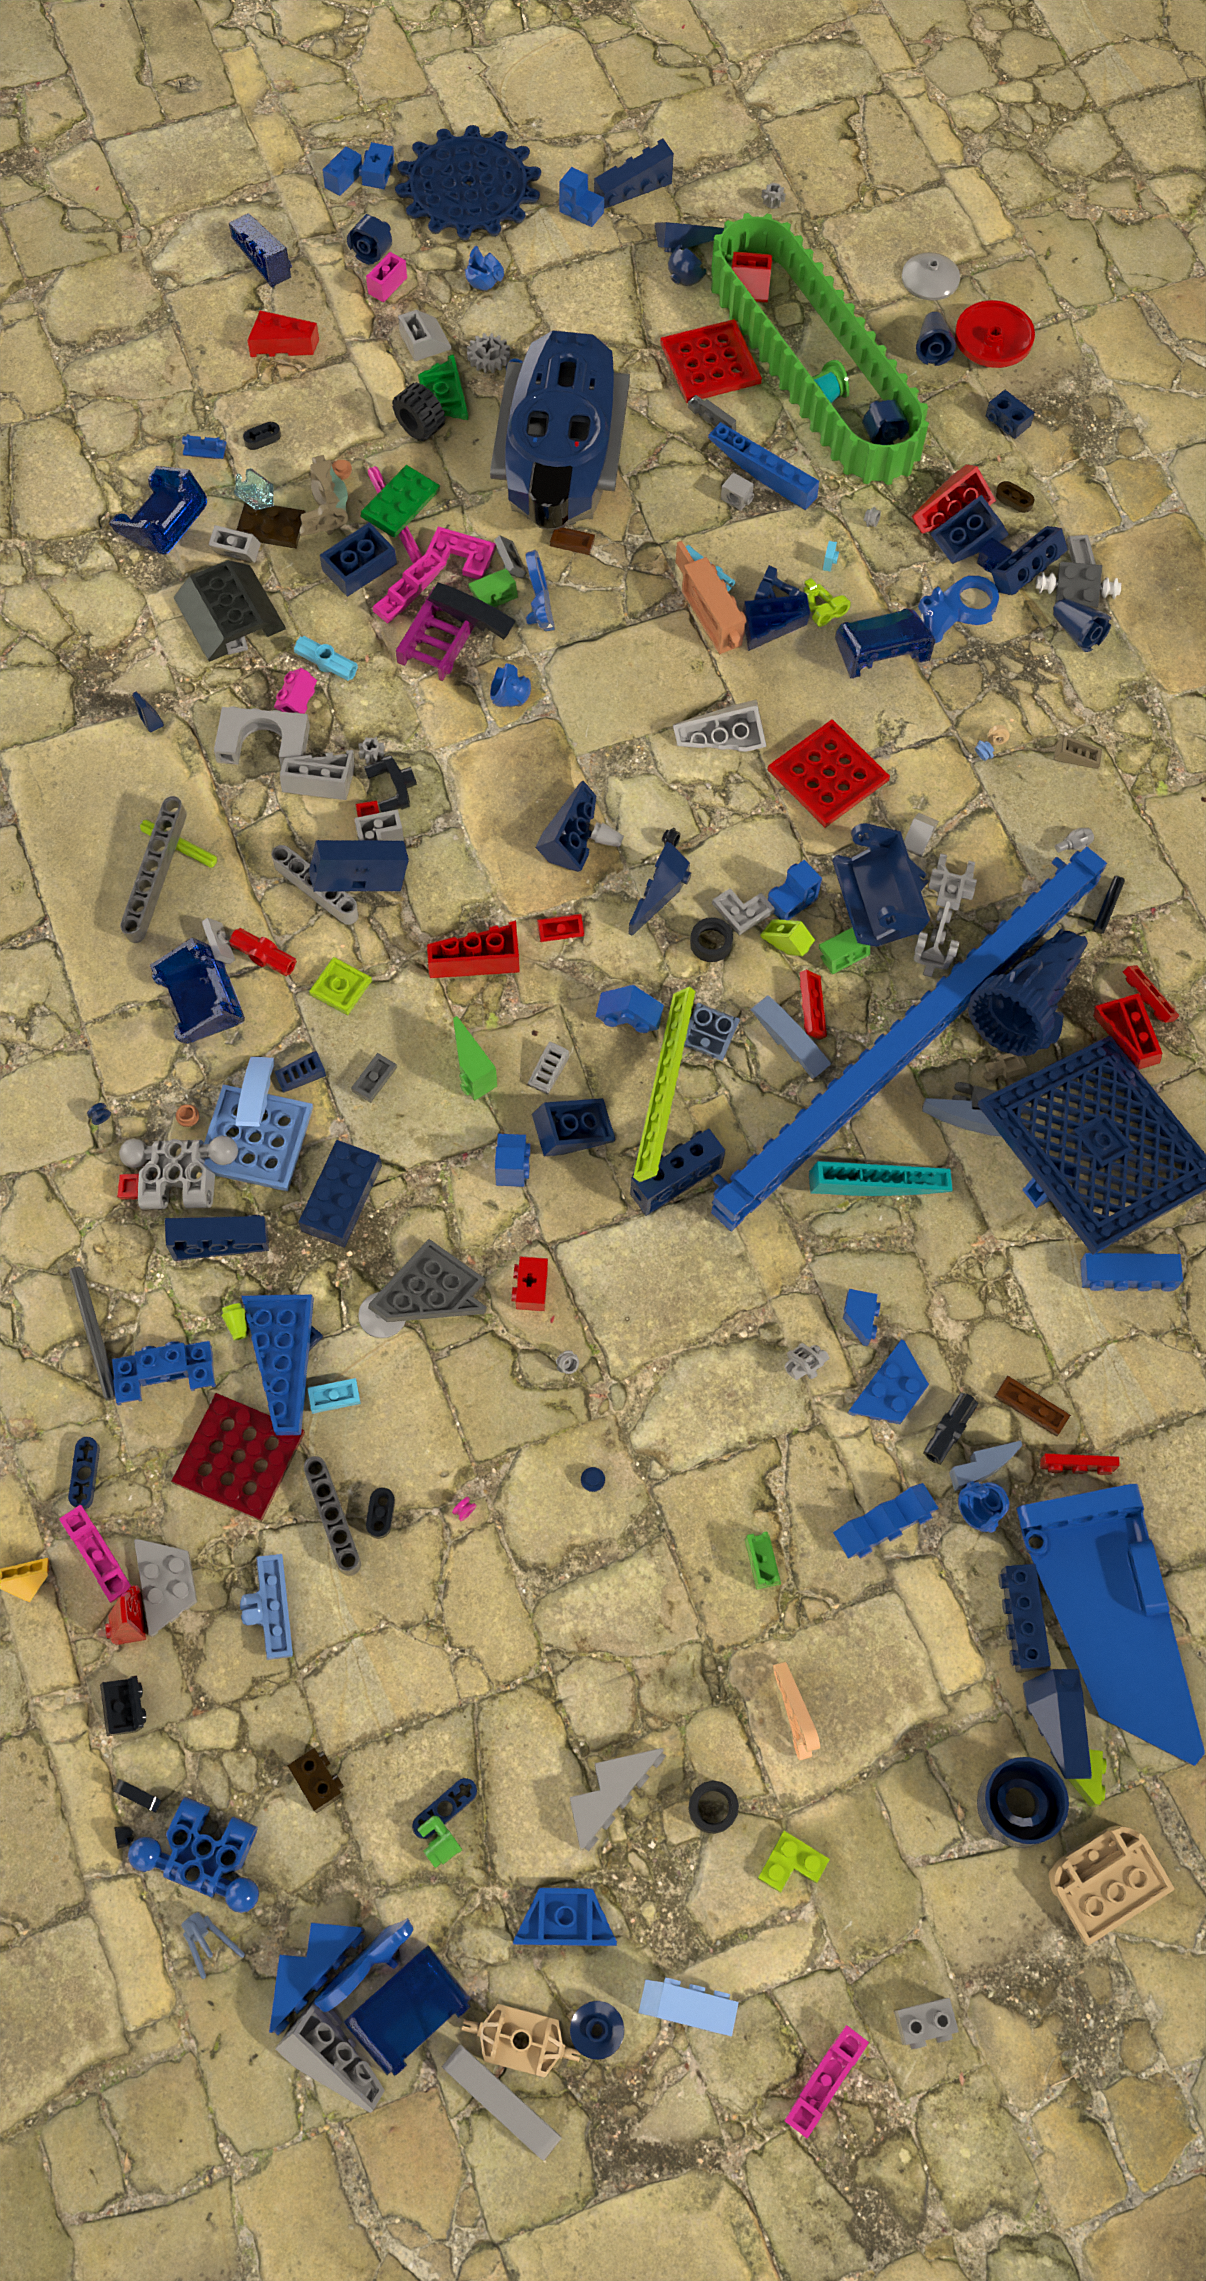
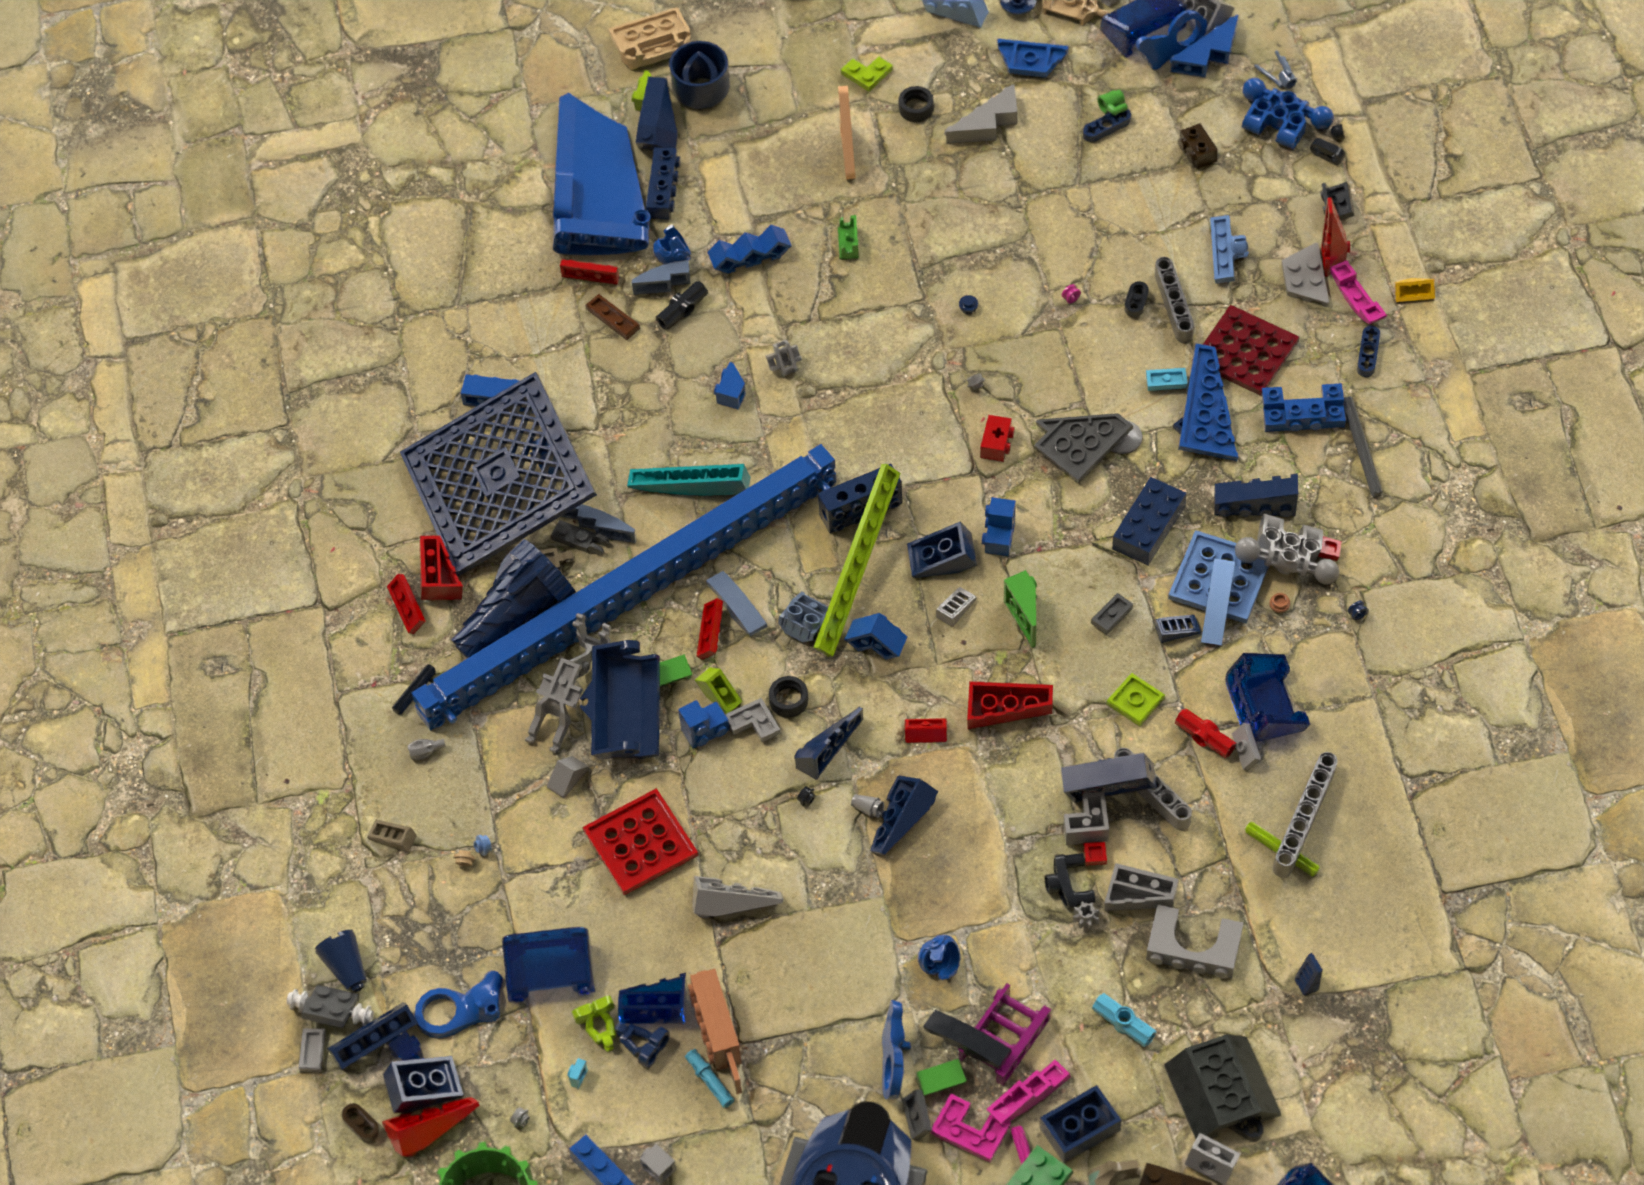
camera: 165 degrees left, 10 degrees down
(235, 1321) = (1244, 442): lime cone -> none
(295, 692) = (1157, 981): dark pink brick -> none
(893, 1388) = (720, 338): blue wing -> none

